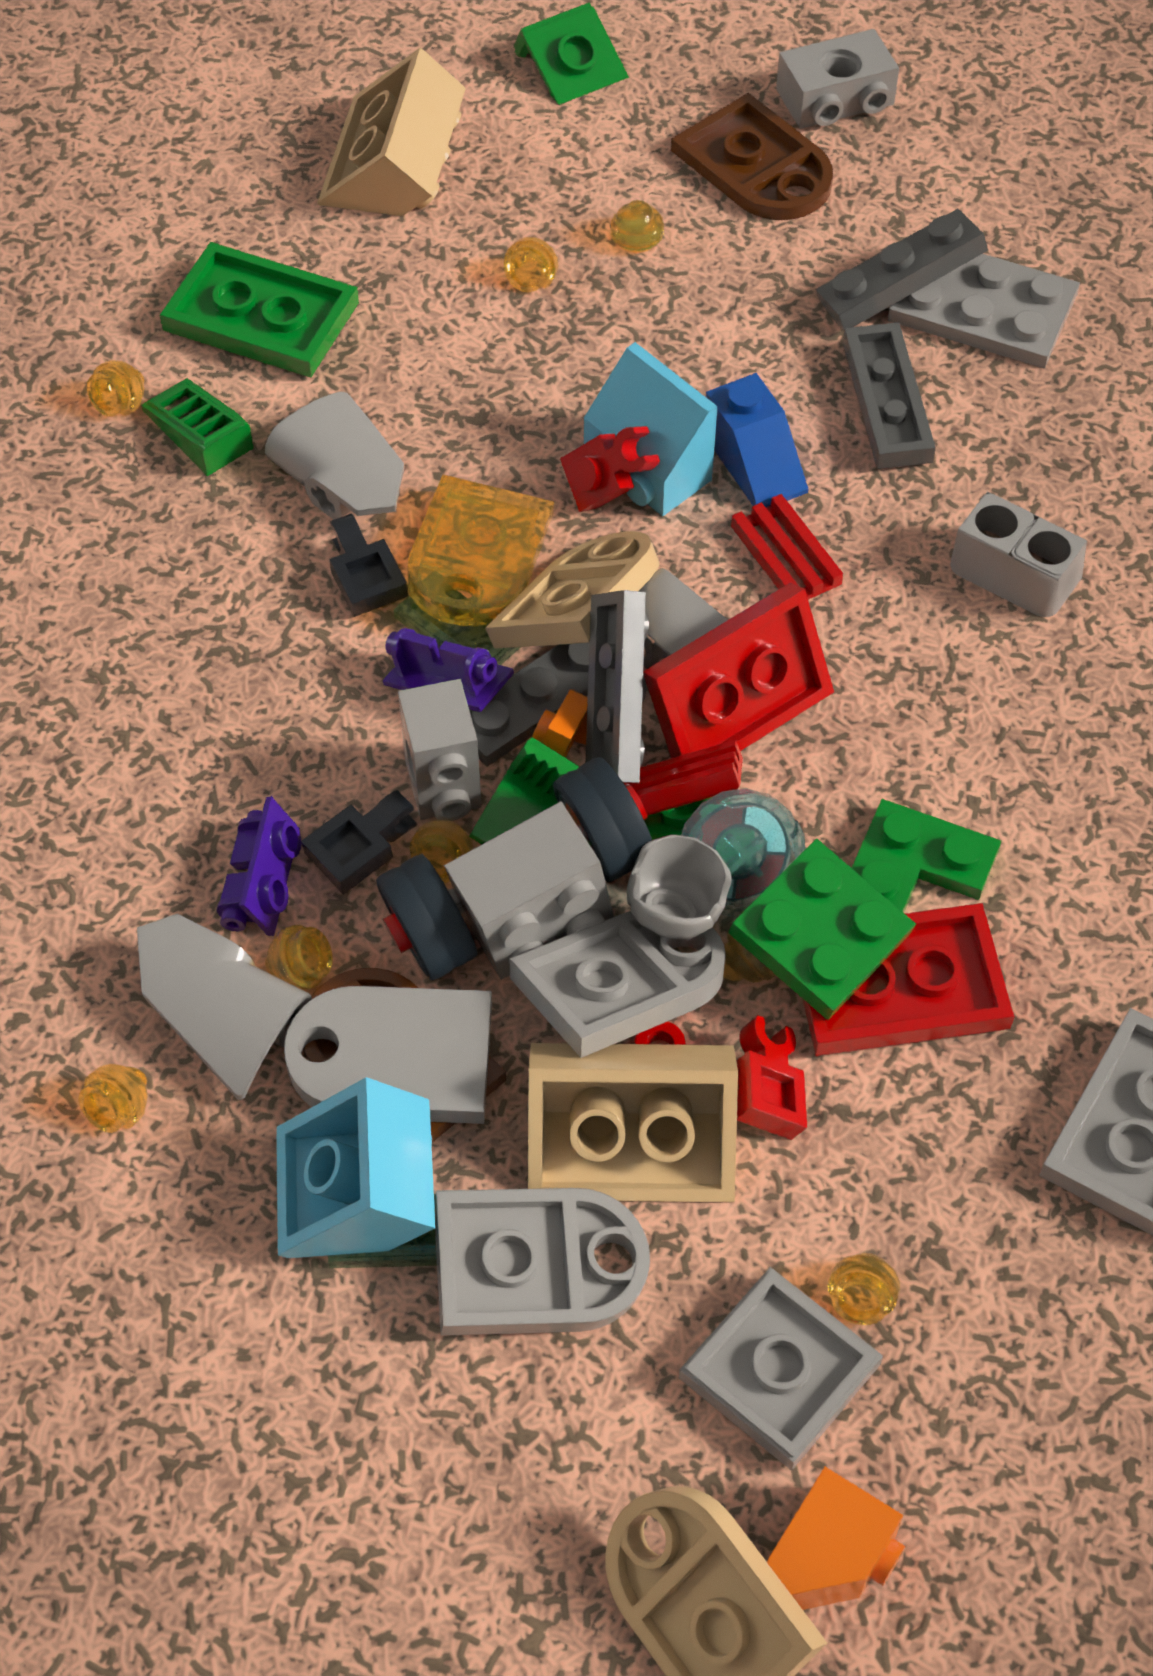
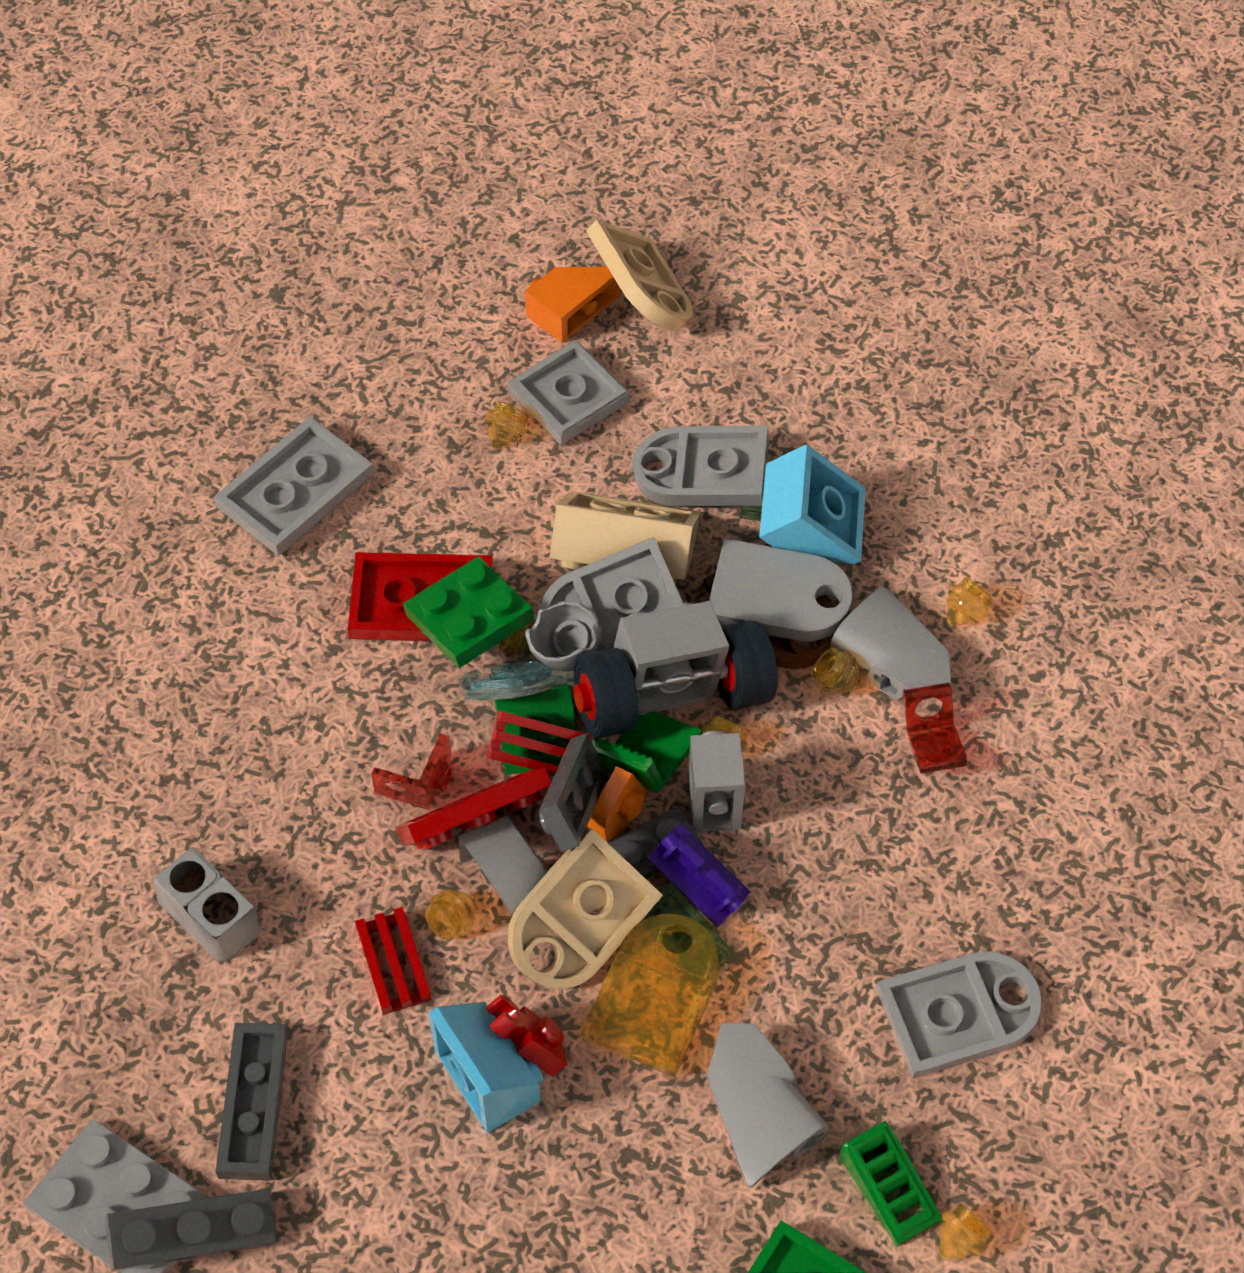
camera: 170 degrees left, 0 degrees up
(123, 595) = (956, 1011): none -> light grey tile
(157, 879) = (933, 737): none -> clear red bracket
(266, 848) = (864, 729): dark purple hinge -> none
(357, 845) = (787, 749): black plate -> none
(363, 570) = (754, 988): black plate -> none
(732, 592) = (451, 914): none -> clear yellow plate
(756, 441) = (392, 1062): blue slope -> none
(768, 1088) = (527, 542): red plate -> none
(814, 719) = (420, 792): none -> clear red bracket
(915, 846) = (386, 692): green plate -> none

